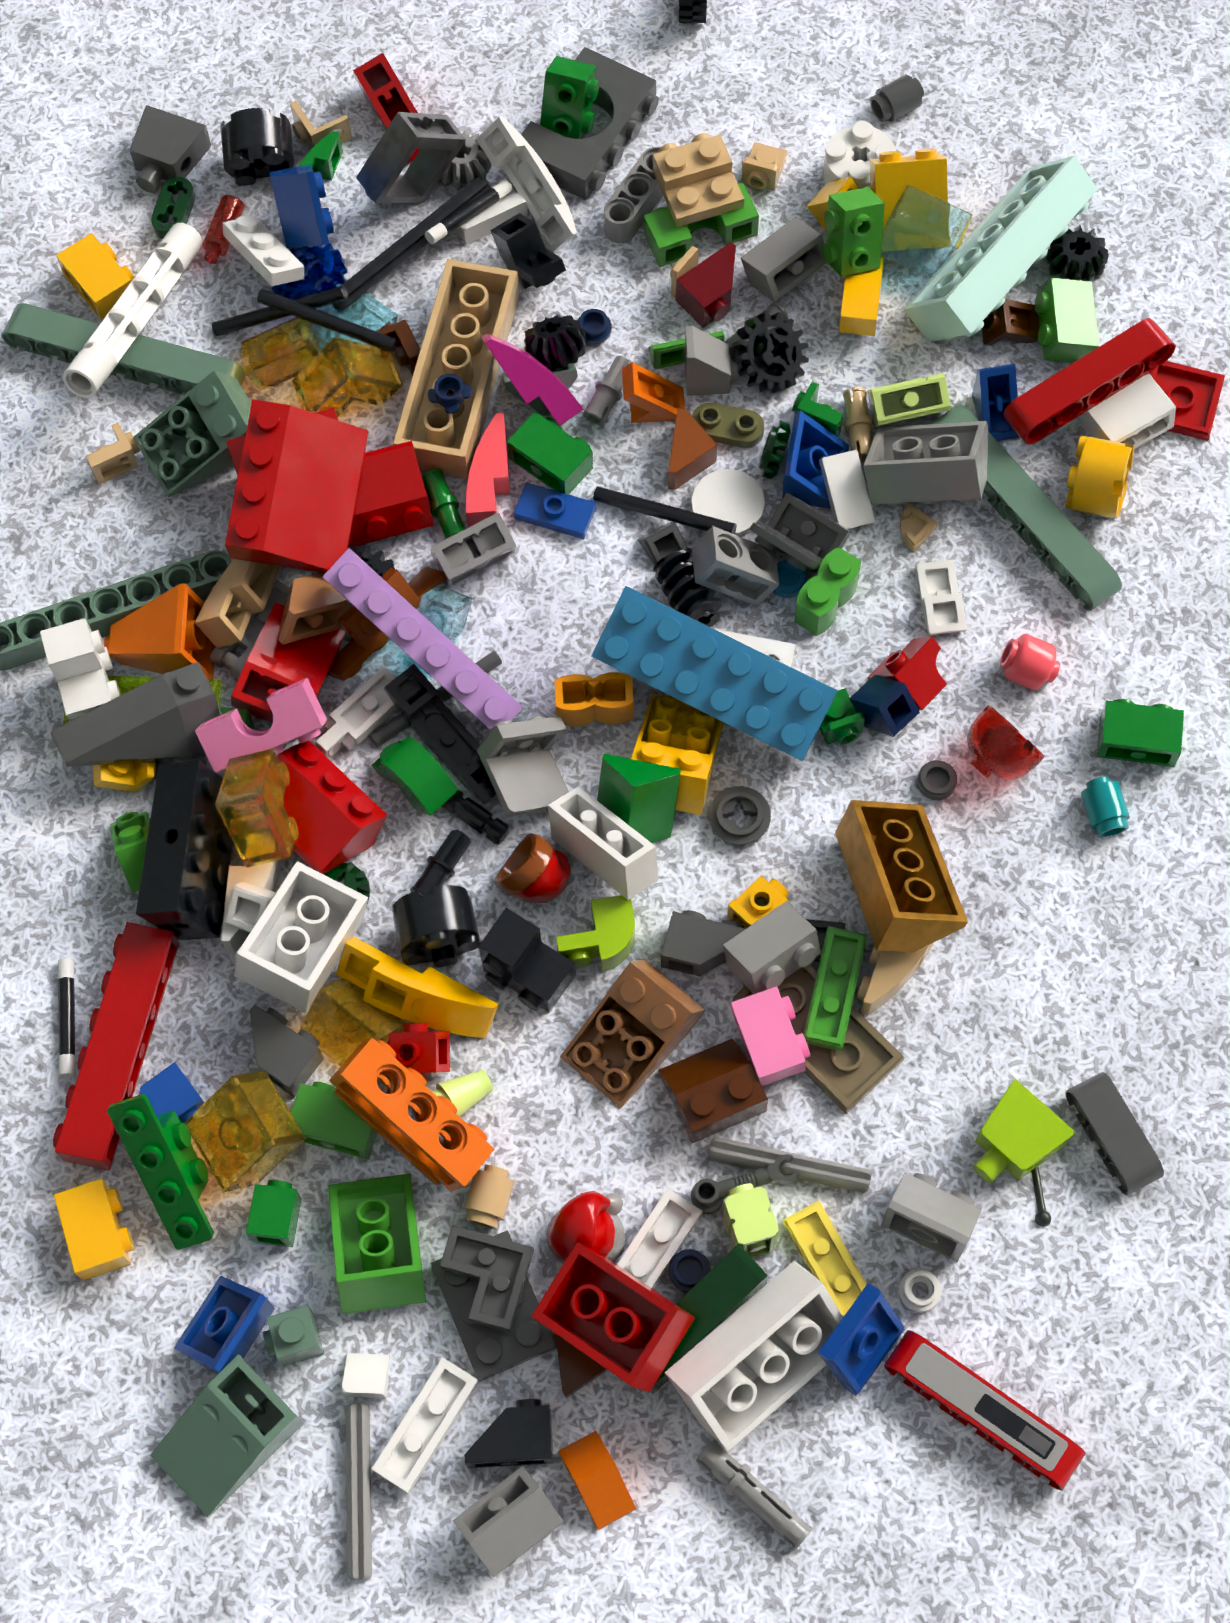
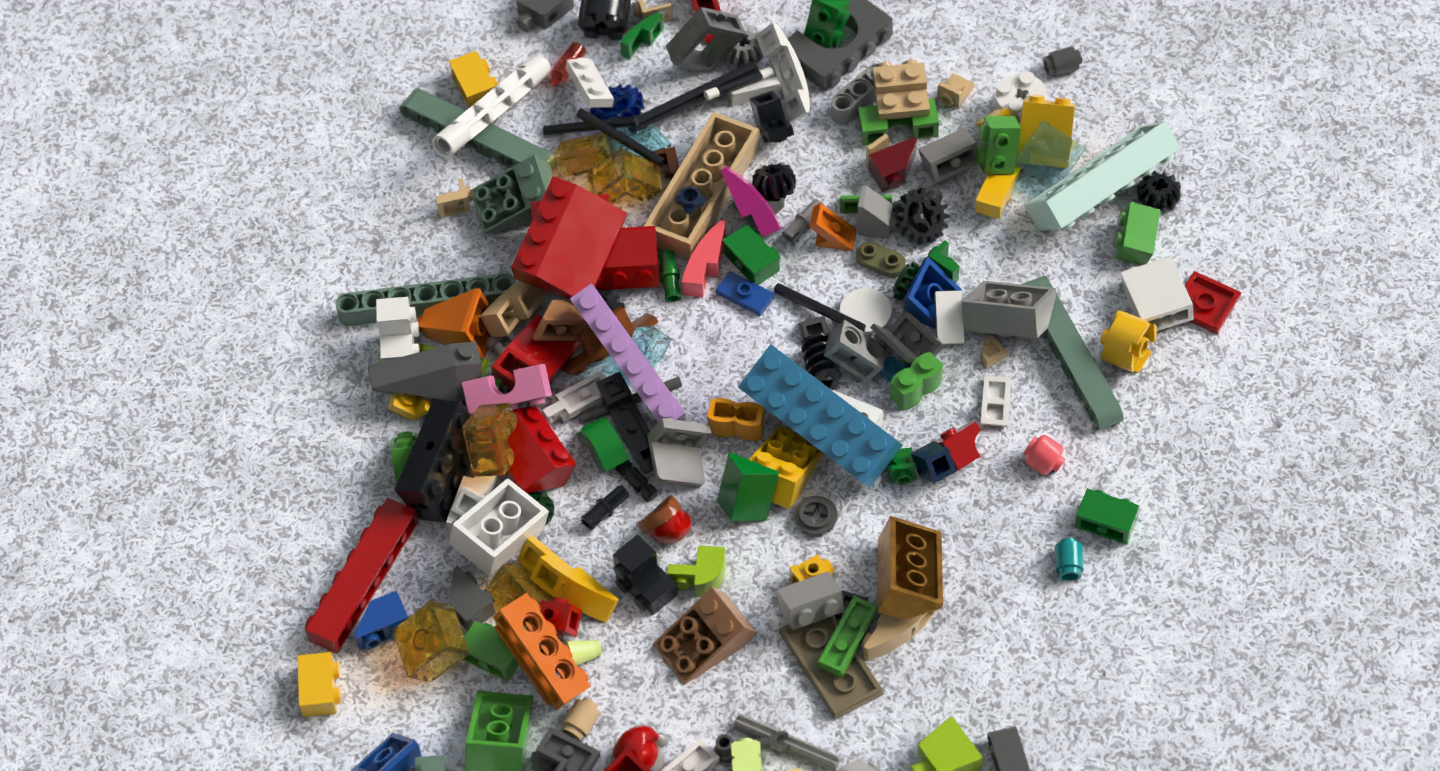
camera: 15 degrees right, 10 degrees down
(66, 1017) = (333, 552): black bar -> none
(165, 205) = (532, 41): dark green beam -> none
(166, 1167) = (374, 652): green bracket -> none
(274, 1214) = (436, 699): green brick -> none
(299, 206) = (622, 58): blue slope -> none
(435, 926) = (589, 540): black brick -> none
(473, 549) = (680, 306): light grey brick -> none
(595, 325) = (806, 176): dark blue plate -> none
(603, 842) = (715, 510): white brick -> none
(691, 450) = (847, 271): dark orange slope -> none
(696, 943) = (759, 589): dark grey slope -> none
(714, 1090) = (749, 686): reddish brown slope -> none
(769, 1035) = (793, 655): bright pink brick -> none
(858, 421) = (971, 275): tan pin -> none
(909, 400) = (1009, 265): yellowish green brick -> none
(937, 780) = (958, 520): dark grey tile -> none
(992, 394) = (1072, 279): blue slope -> none
(1000, 747) = (1005, 505): clear red cylinder -> none
(1012, 322) = (1097, 227): reddish brown bracket -> none
(1089, 381) = (1135, 275): red beam -> none

